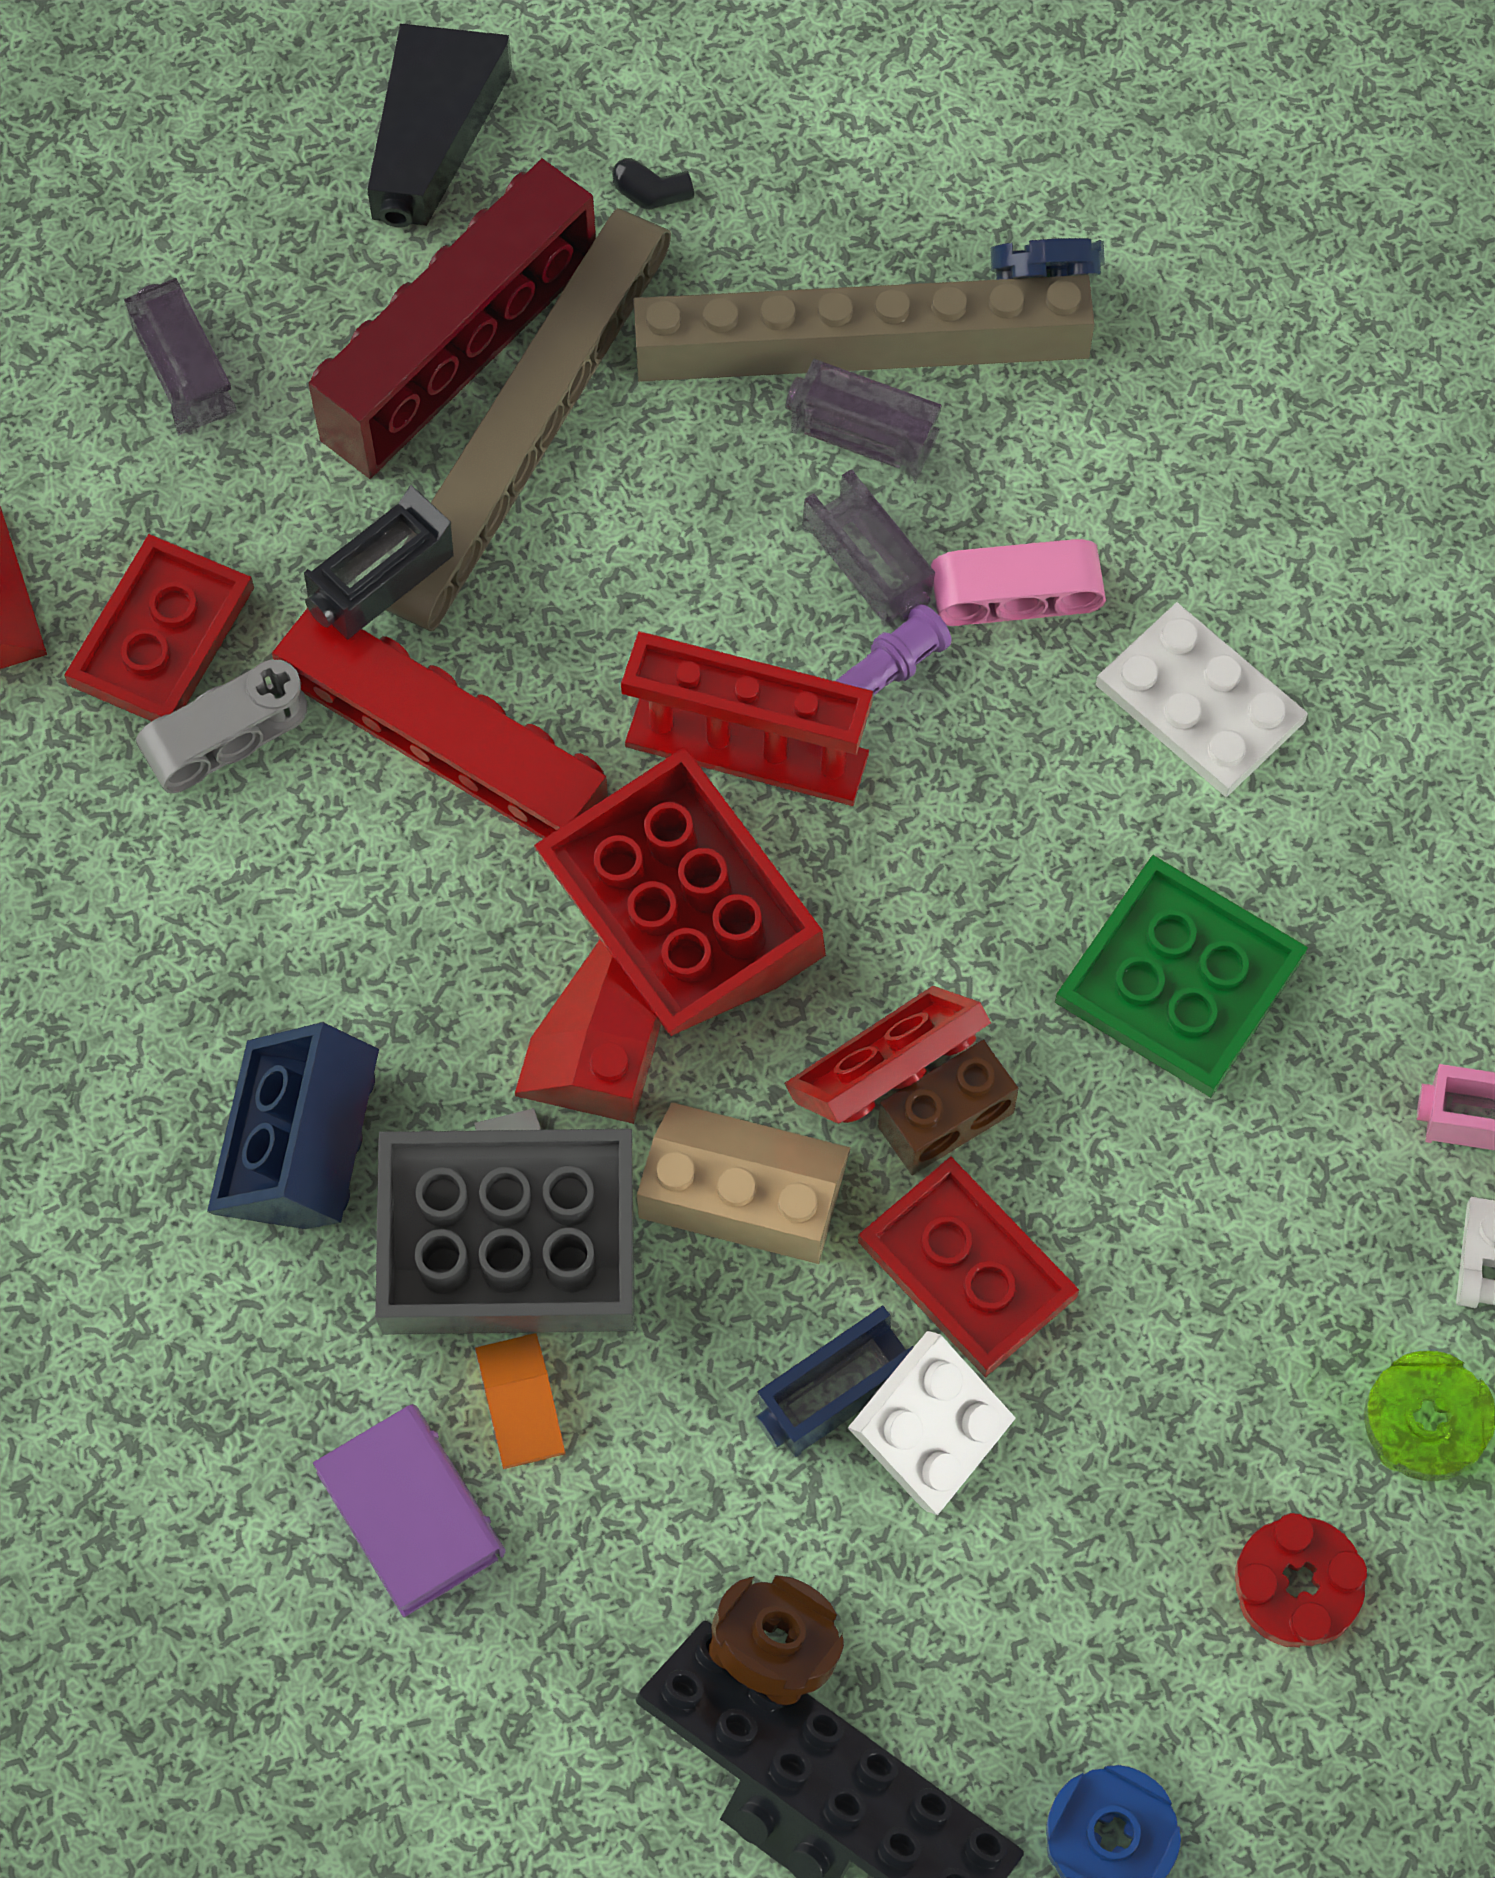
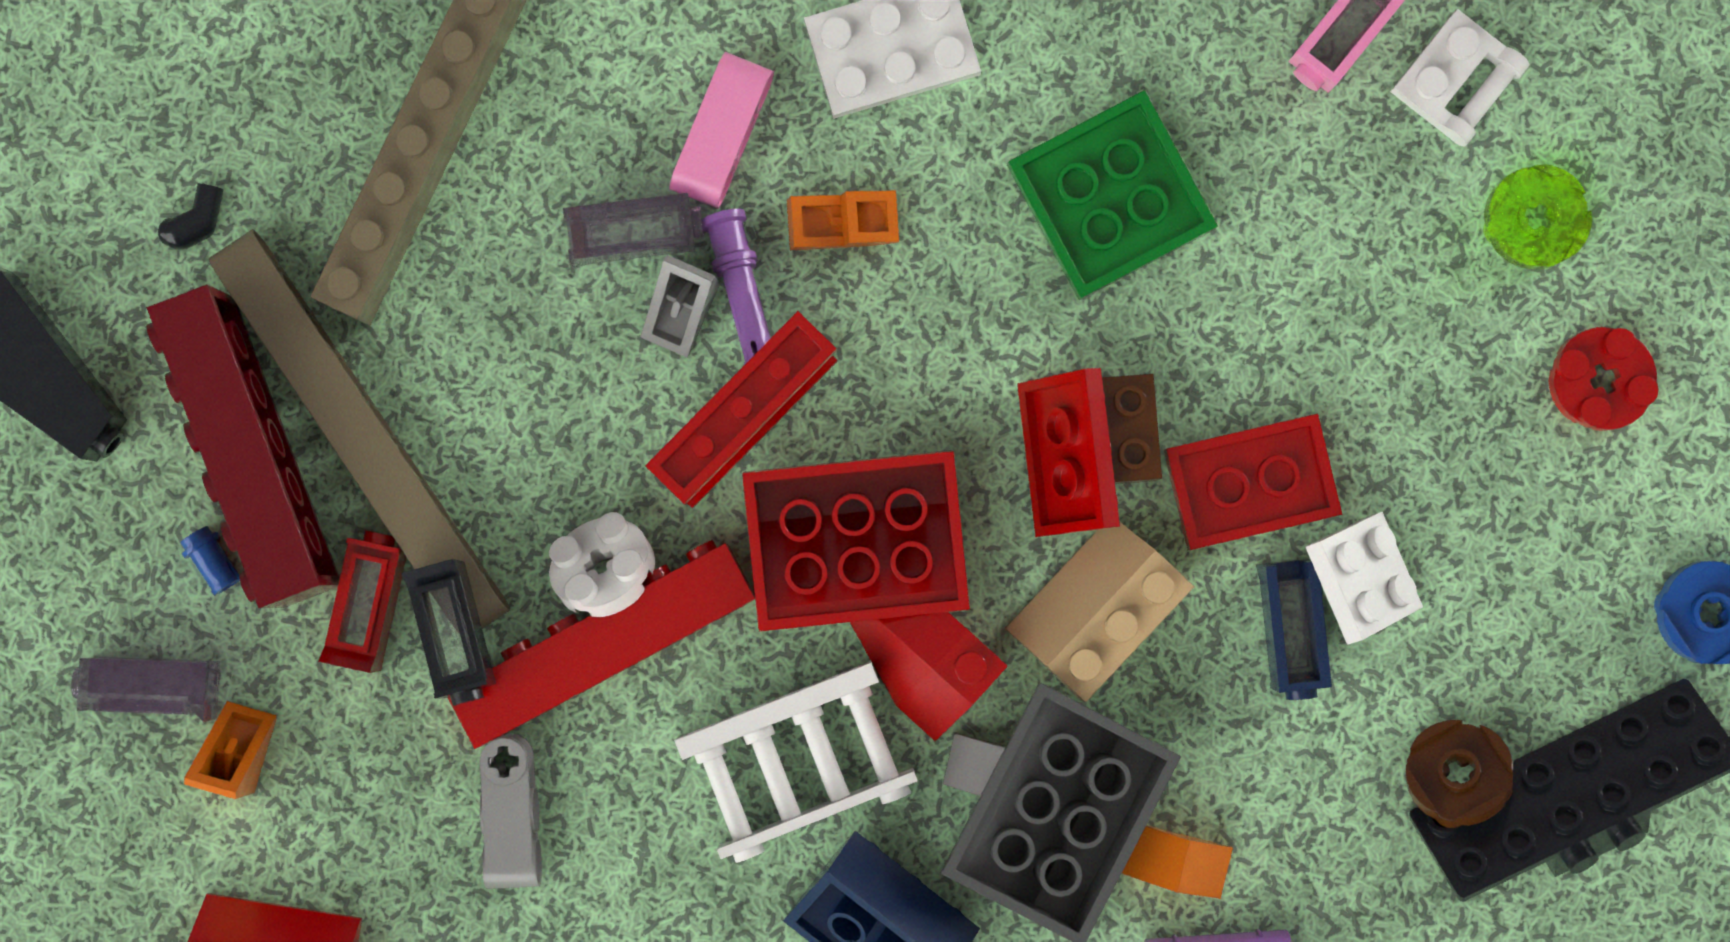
camera: 65 degrees left, 20 degrees up
(153, 456) = (233, 752): none -> orange slope
(159, 630) = (395, 822): red plate -> none
(334, 338) = (210, 559): none -> blue pin
(346, 500) = (364, 603): none -> red window
(435, 906) = (756, 728): none -> white fence
(518, 679) = (586, 546): none -> white plate
(822, 628) = (679, 306): none -> light grey slope
(864, 416) = (509, 168): clear purple window -> none
(997, 740) = (842, 220): none -> orange slope

